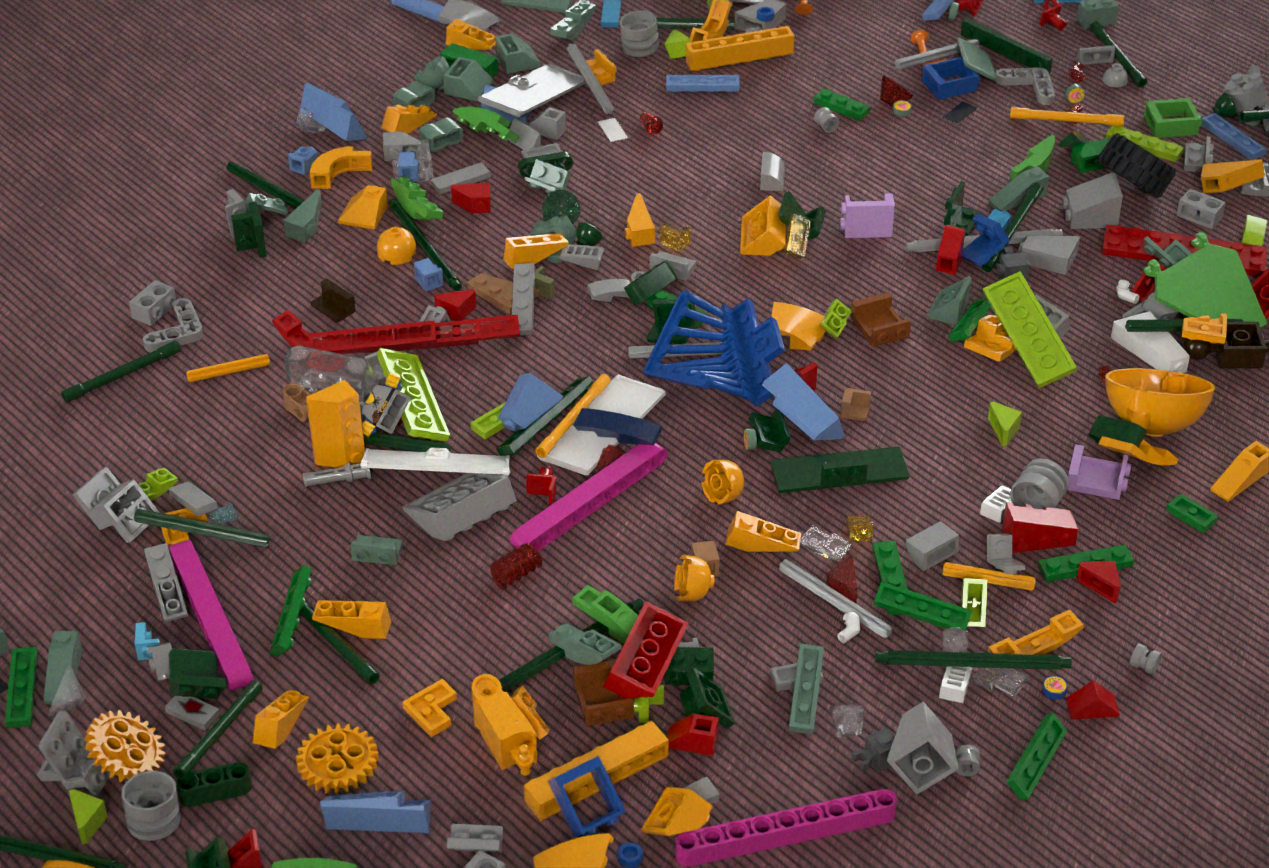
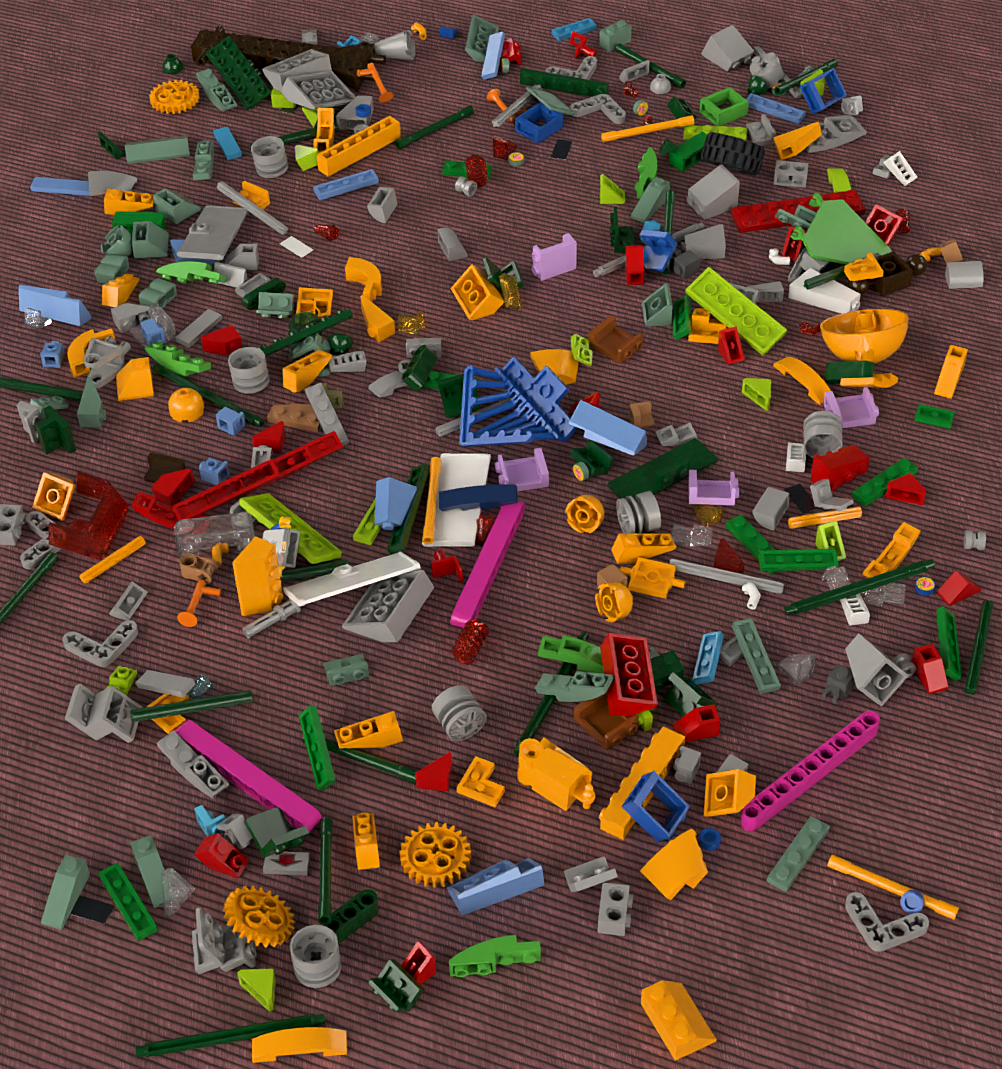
camera: 25 degrees left, 5 degrees up
(134, 679) = (221, 856): none -> red slope
(165, 449) = (104, 649): none -> light grey beam
(213, 288) = (54, 495): none -> light orange slope
(215, 412) = (128, 602): none -> light grey slope
(237, 331) = (94, 536): none -> clear red windscreen
(258, 446) = (188, 618): none -> orange piece
(329, 316) = (172, 486): none -> red slope
(346, 178) = (107, 359): none -> light grey piece
(376, 312) = (214, 471): none -> medium blue brick
(393, 682) = (436, 775): none -> red slope
(451, 629) = (459, 713): none -> light grey wheel
(475, 230) = (248, 370): none -> light grey wheel
(544, 213) = (310, 329): none -> dark green plate
(591, 188) = (315, 301): none -> light orange slope
(655, 771) = (687, 764): none -> light grey brick
(661, 174) = (366, 273): none -> light orange arch
(688, 421) = (524, 472): none -> lavender panel
(726, 112) = (382, 204): none -> light grey brick
(751, 571) = (652, 577): none -> light orange plate
(755, 672) = (708, 657): none -> dark azure tile
(776, 499) = (638, 513): none -> light grey wheel
(844, 105) = (476, 170): none -> clear red piece
(874, 47) = (461, 114): none -> dark green piece
(875, 437) = (671, 437): none -> light grey slope
(876, 506) = (712, 491): none -> lavender panel
(976, 548) = (801, 498): none -> black sticker
(979, 168) = (610, 192): none -> lime slope
(993, 773) = (930, 668): none -> red slope
(1003, 364) = (730, 345): none -> red slope
(1037, 41) = (584, 71): none -> light grey beam
(1068, 425) = (804, 375): none -> light orange slope
(1072, 773) = (978, 648): none -> dark green axle
(1094, 320) = (775, 292): none -> light grey slope
(1123, 105) = (680, 108): none -> dark green slope
(1216, 58) = (728, 49): none -> light grey slope

